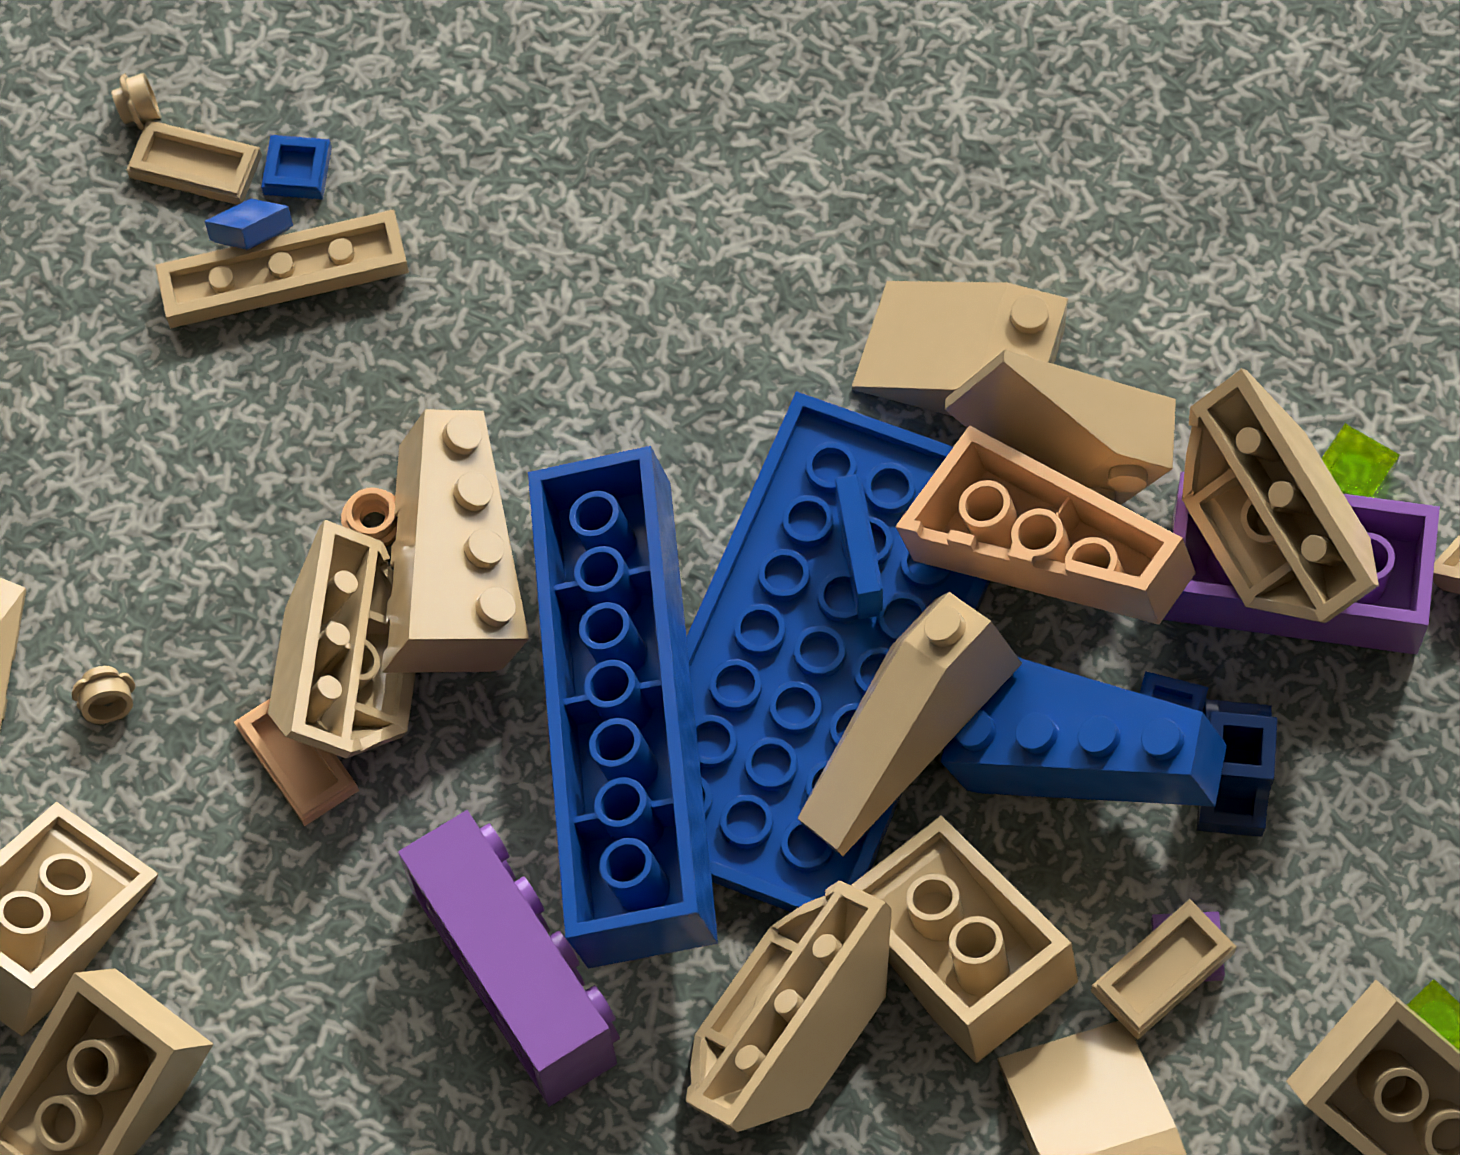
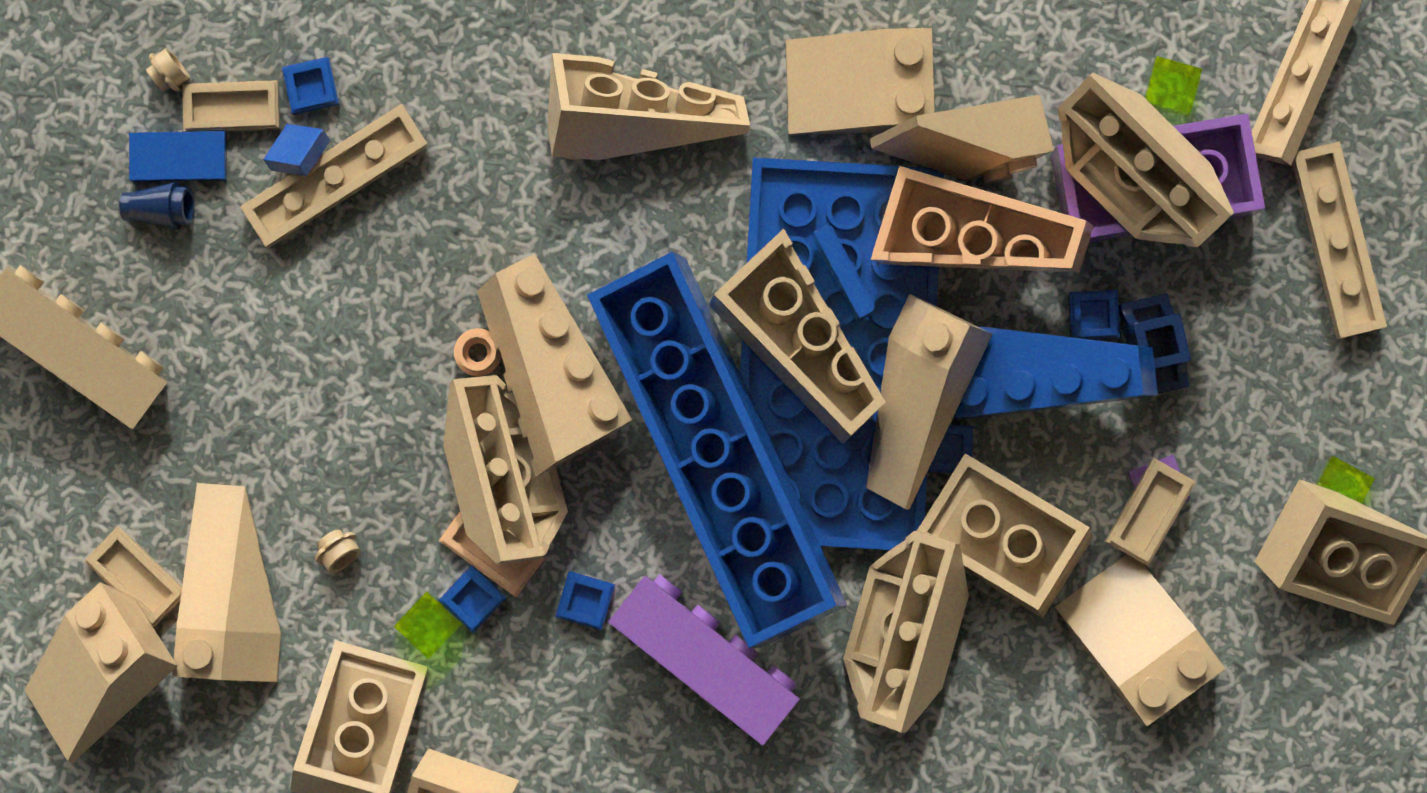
camera: 25 degrees left, 20 degrees up
(64, 240) = (160, 206): none -> dark blue cone
(108, 197) = (178, 156): none -> blue tile
(178, 818) = (428, 625): none -> clear neon green plate
(247, 808) = (472, 599): none -> blue tile
(377, 856) = (585, 600): none -> blue tile
(631, 293) = (615, 115): none -> tan wedge
(770, 593) = (798, 337): none -> tan wedge
(920, 806) = (956, 443): none -> blue tile

